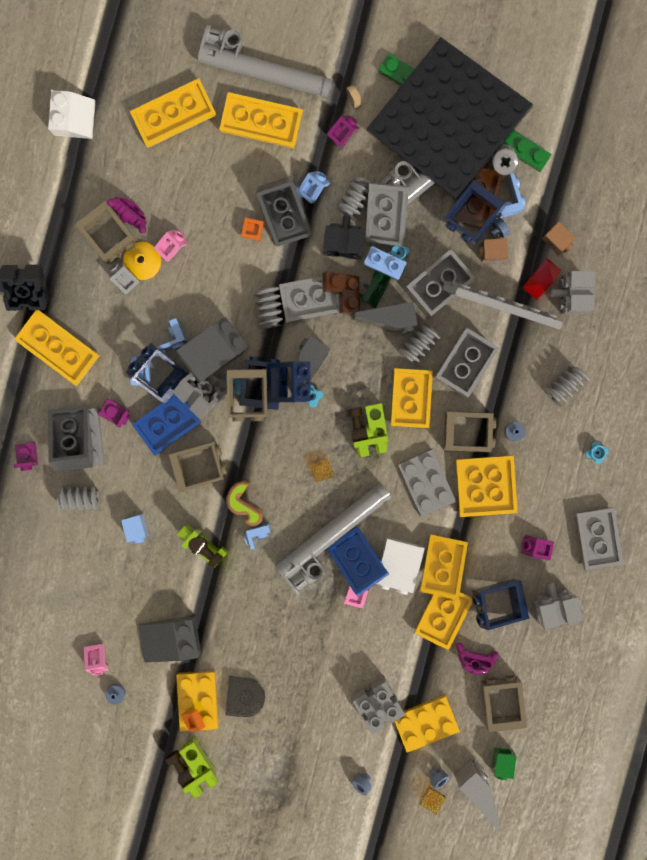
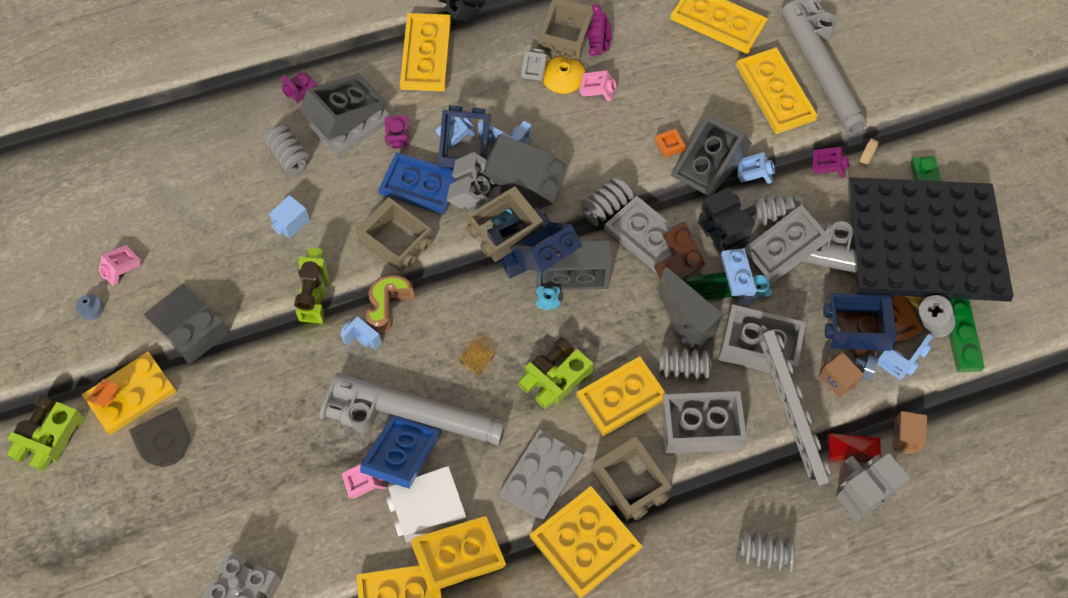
camera: 55 degrees right, 25 degrees down
(510, 431) = (668, 538): sand blue tile -> none

